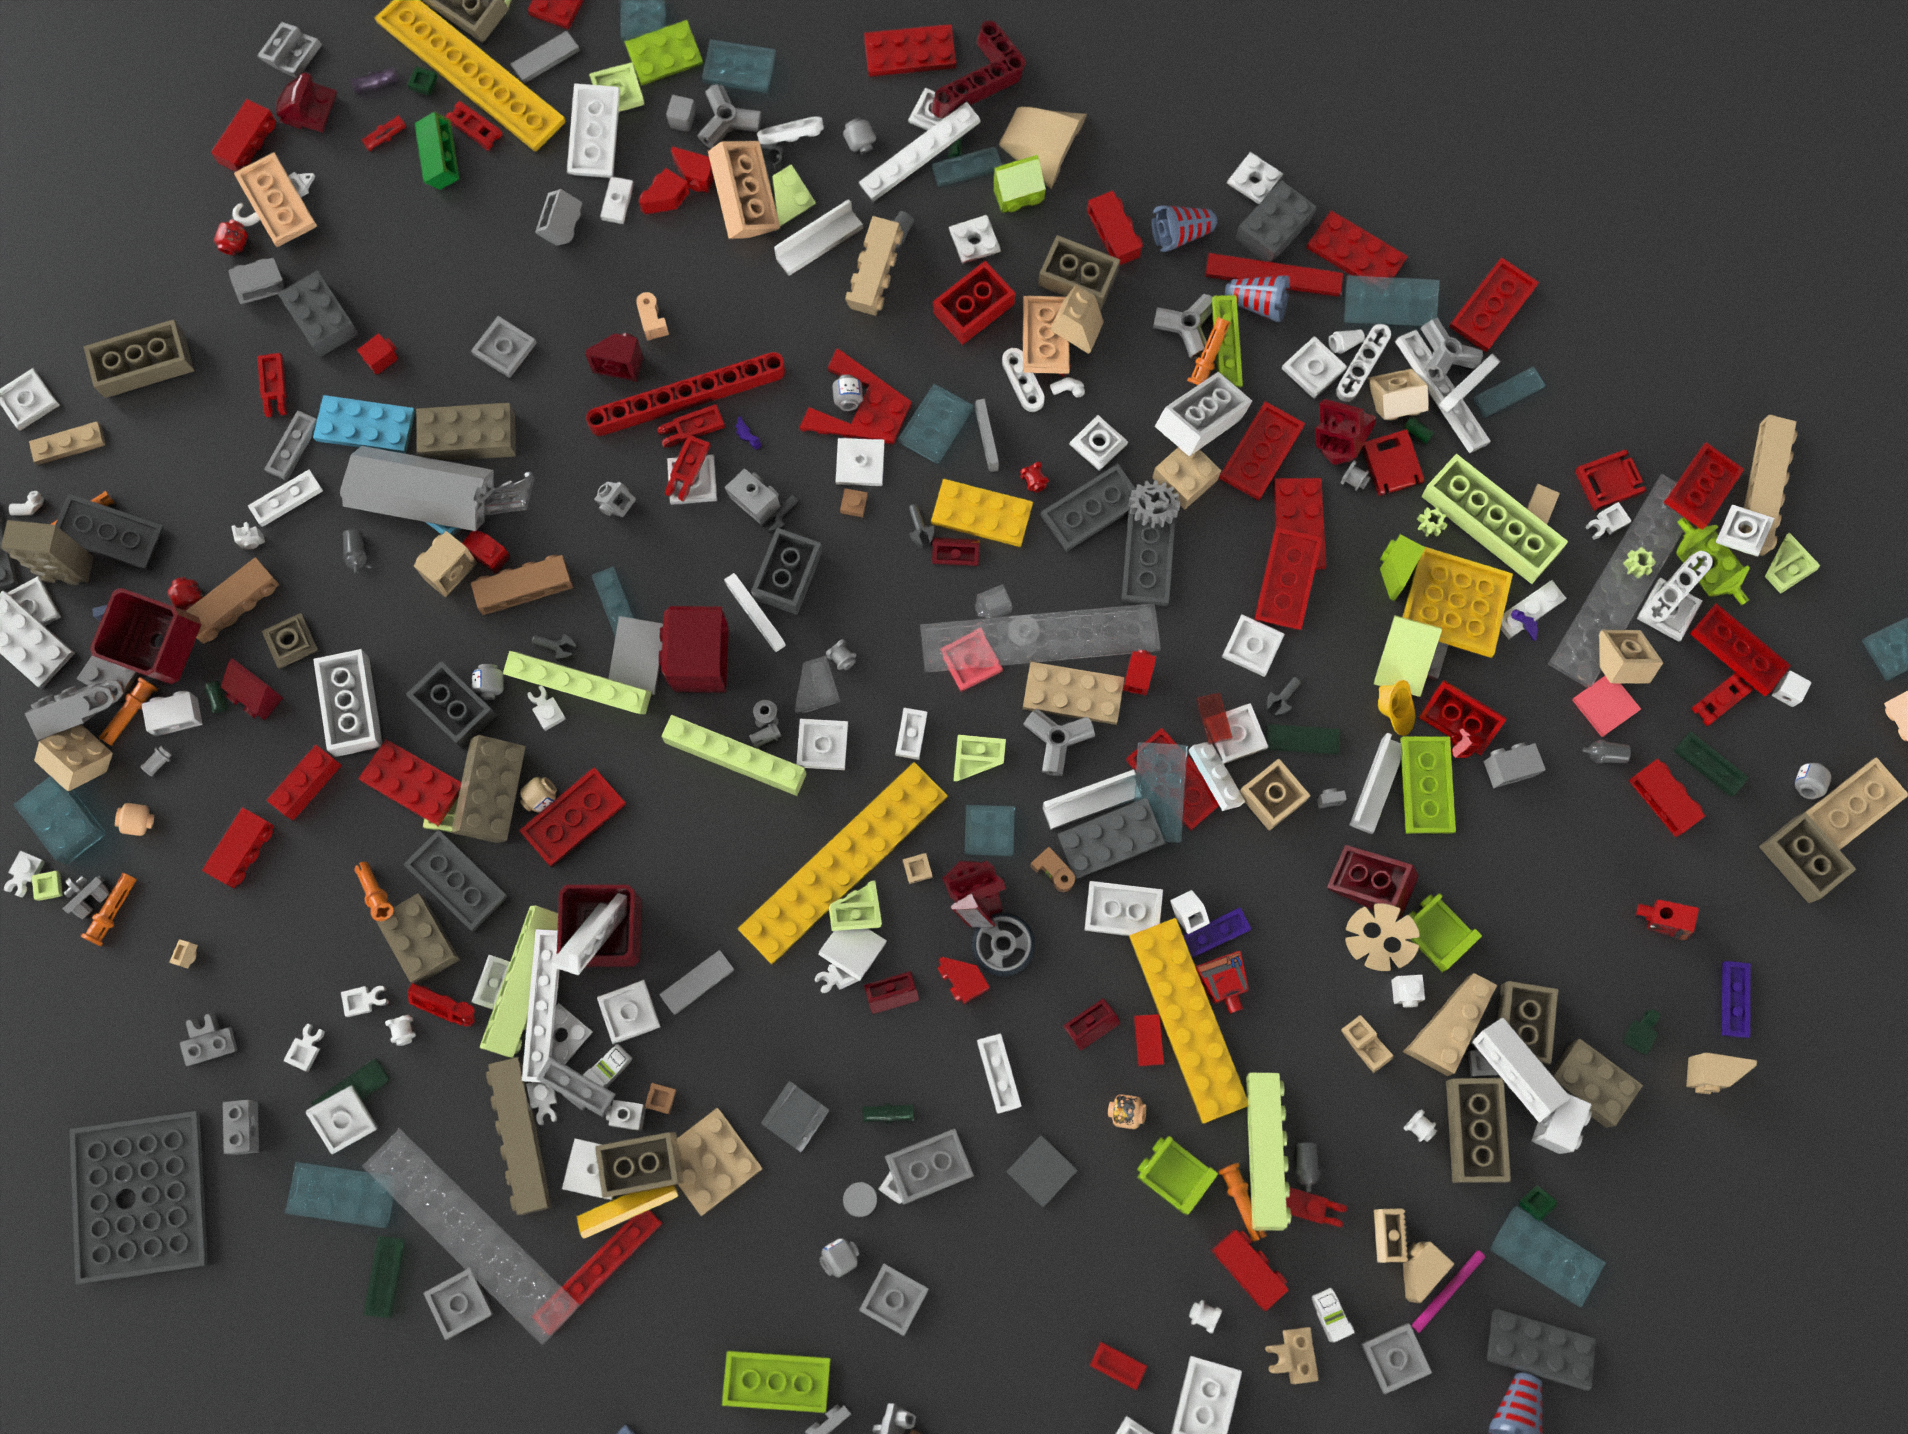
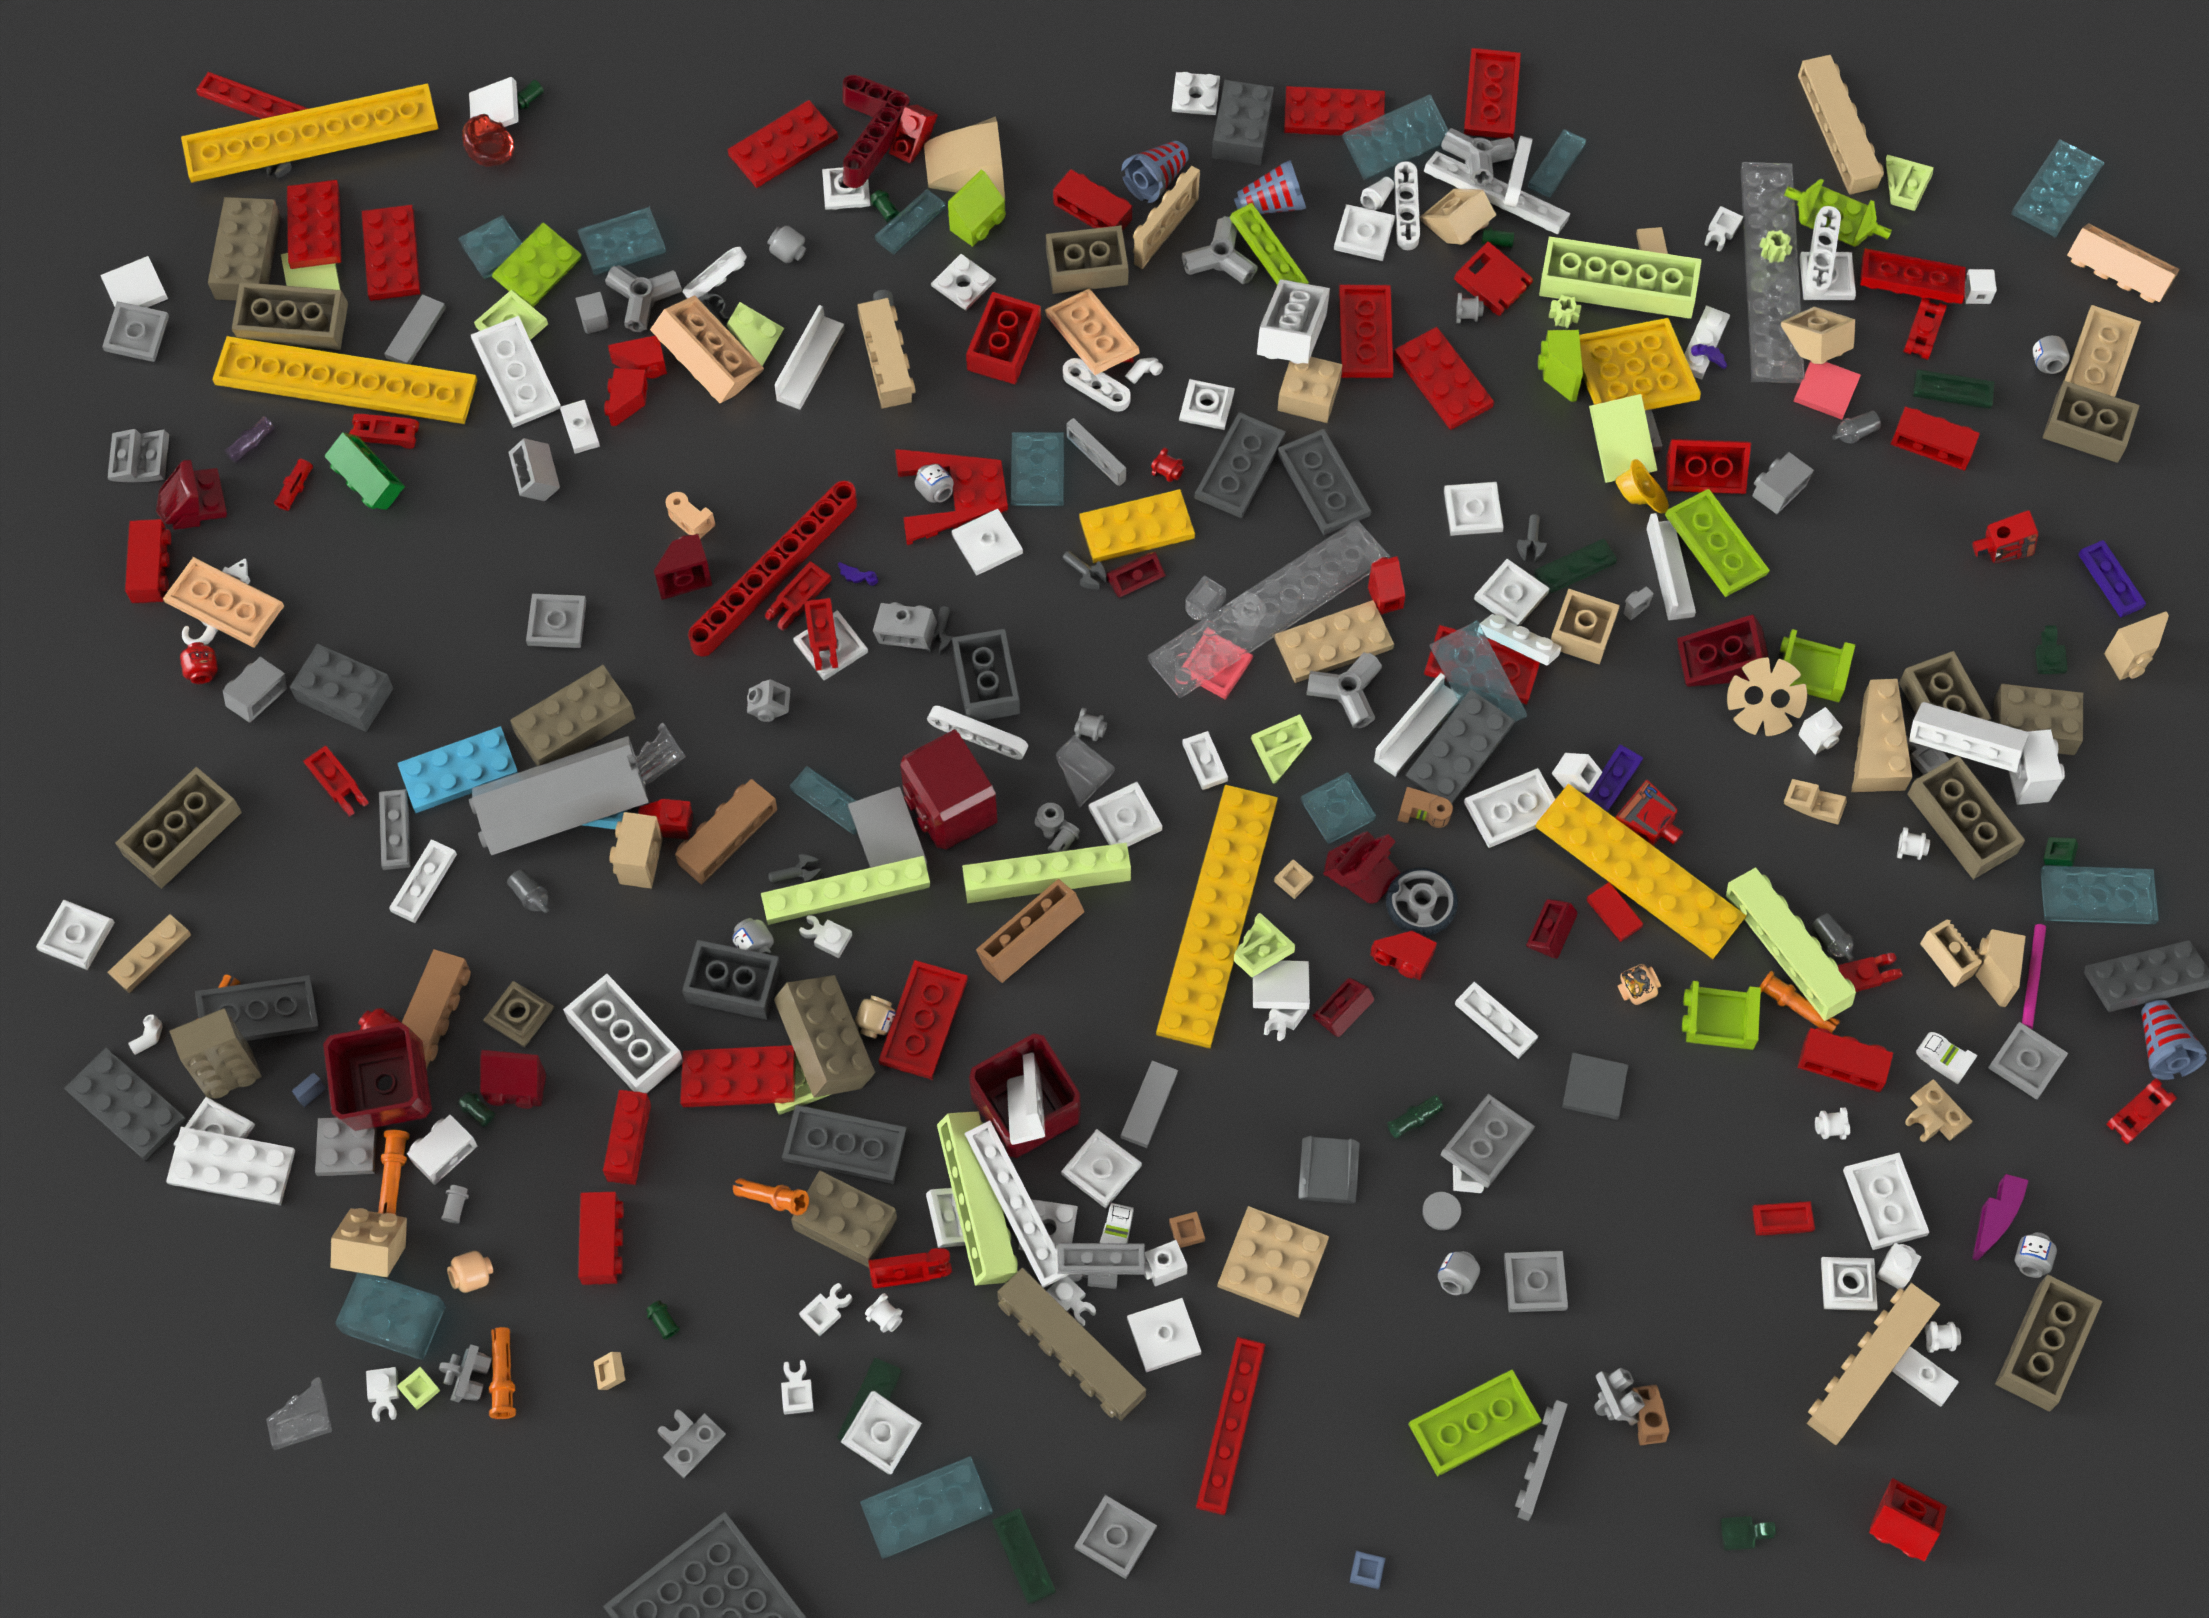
camera: 30 degrees left, 10 degrees down
(70, 707) = (337, 1194): light grey brick -> none
(240, 1127) = (782, 1499): light grey brick -> none
(245, 937) = (662, 1319): none -> dark green pin
(248, 537) = (410, 936): white plate -> none
(378, 353) = (429, 693): red brick -> none
(422, 81) = (302, 415): dark green plate -> none
(471, 1236) = (1086, 1463): clear plate -> none
(623, 1209) = (1222, 1347): yellow tile -> none
(639, 1164) = (1212, 1293): dark tan brick -> none
(691, 794) = (1030, 930): none -> medium nougat brick
(854, 502) = (1006, 582): medium nougat plate -> none
(919, 152) = (857, 229): white plate -> none
(973, 912) = (1379, 880): slope -> none
(1013, 93) = (912, 132): none -> red slope
(1079, 319) = (1115, 299): tan slope -> none
(1154, 503) = (1299, 427): light grey gear -> none
(1163, 270) = (1166, 216): none -> tan plate
(1205, 362) = (1261, 279): orange pin -> none
(1214, 718) = (1483, 589): clear red tile -> none
(1288, 578) = (1468, 429): red plate -> none
(1301, 278) = (1303, 160): red tile -> none
(1342, 431) = (1430, 272): dark red piece -> none
(1467, 746) = (1730, 488): red tile -> none
(1613, 479) = (1701, 190): red container -> none
(1704, 486) = (1787, 151): red plate -> none
(1745, 542) = (1844, 181): white piece -> none

